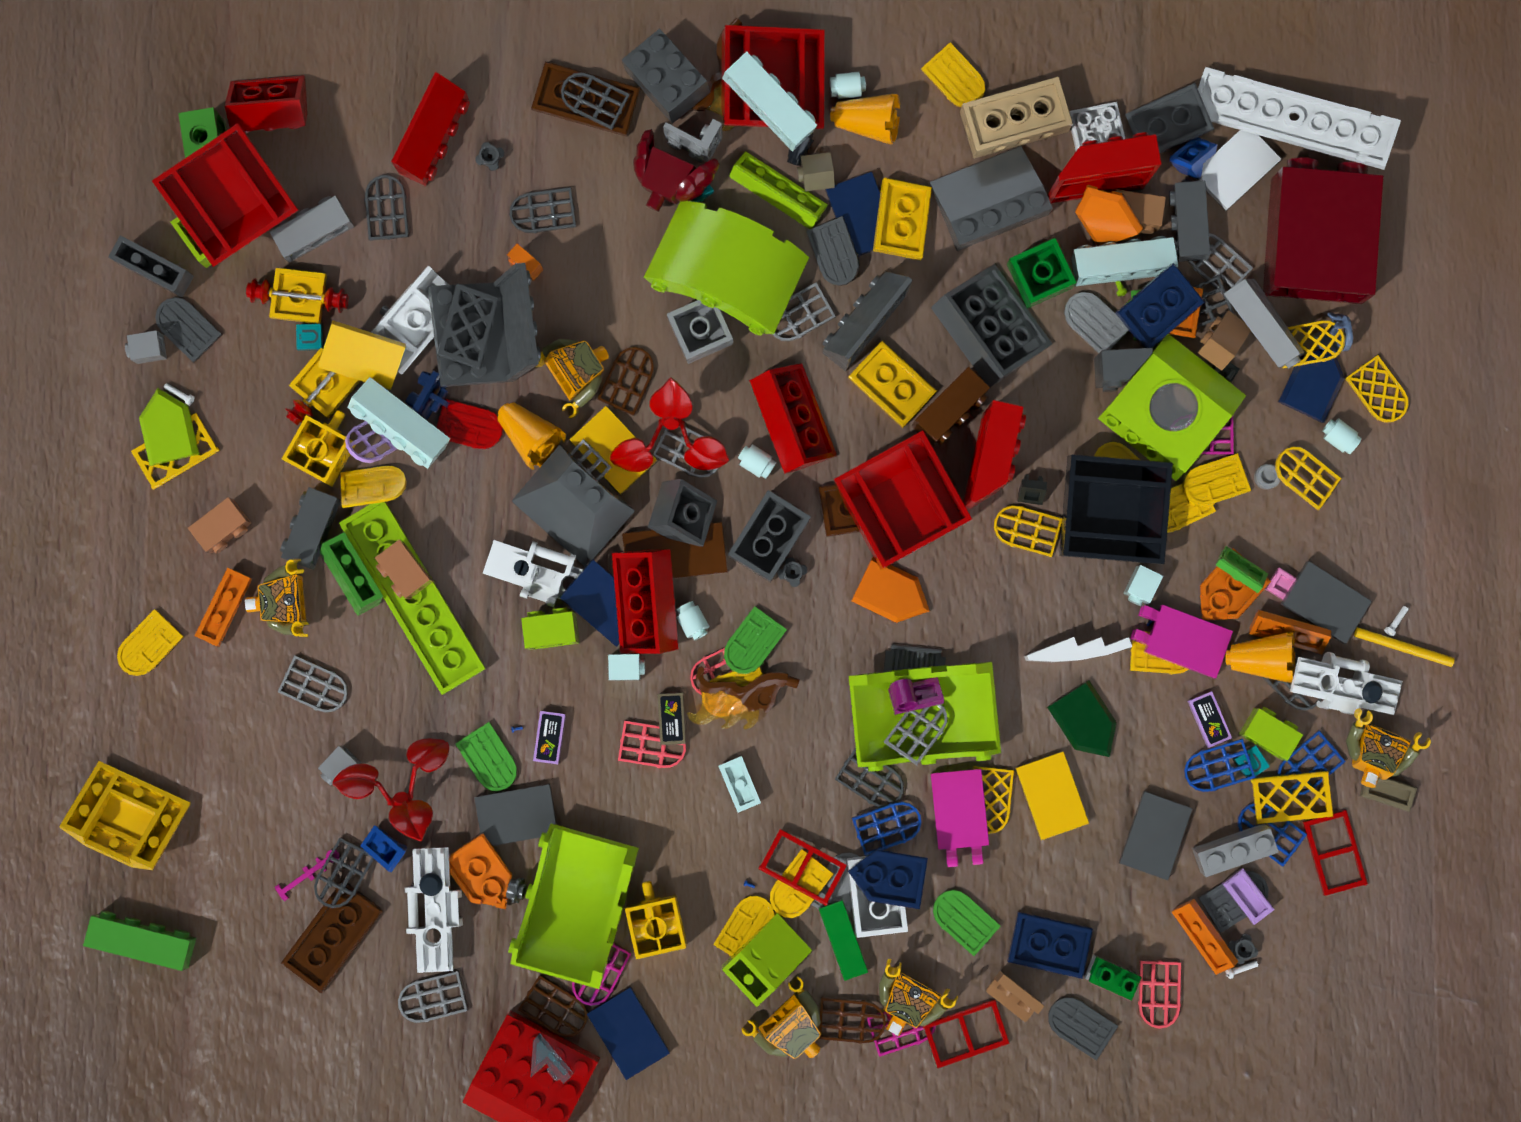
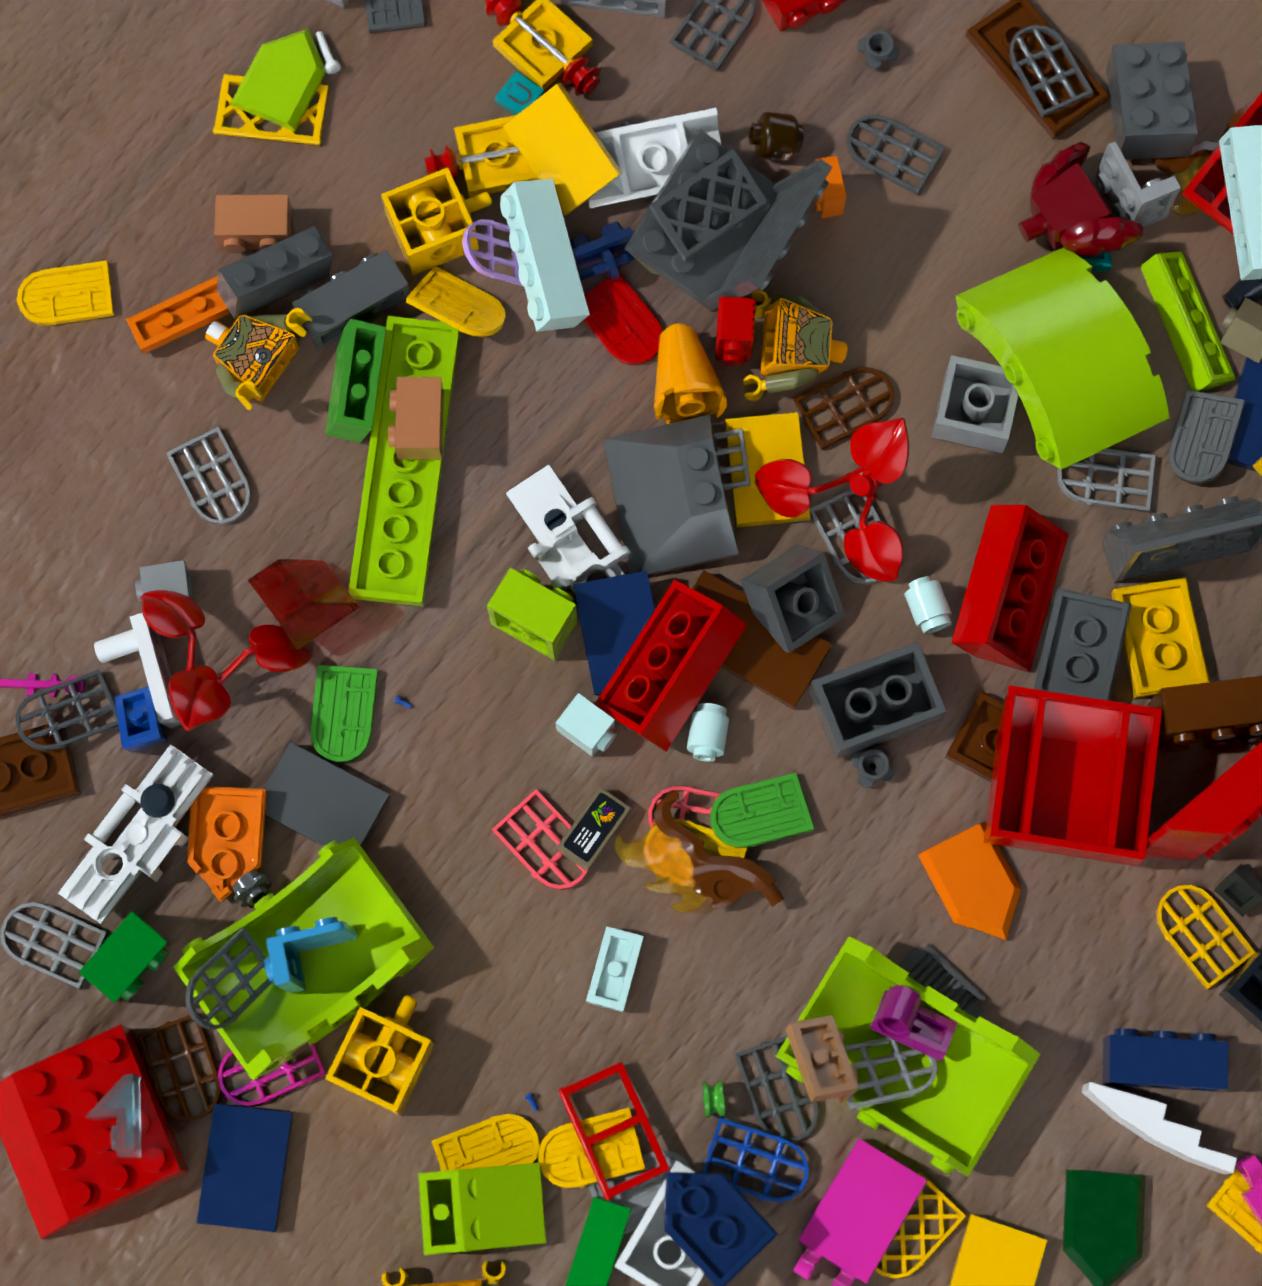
camera: 40 degrees right, 10 degrees down
(256, 547) = (274, 272): none -> dark grey brick
(365, 811) = (153, 657): none -> white piece
(419, 715) = (303, 597): none -> clear red slope
(473, 253) = (776, 136): none -> dark brown head
(481, 978) = (125, 957): none -> green brick
(538, 387) = (735, 330): none -> red brick
(549, 737) = (432, 741): tile -> none
(553, 942) = (211, 983): none -> dark grey window
(569, 918) = (284, 958): none -> dark azure bracket
(841, 811) = (713, 1099): none -> bright green bush
(855, 423) = (1082, 645): none -> dark grey tile
(884, 752) = (822, 1059): none -> medium nougat bracket
(1057, 613) = (1165, 1061): none -> dark blue brick

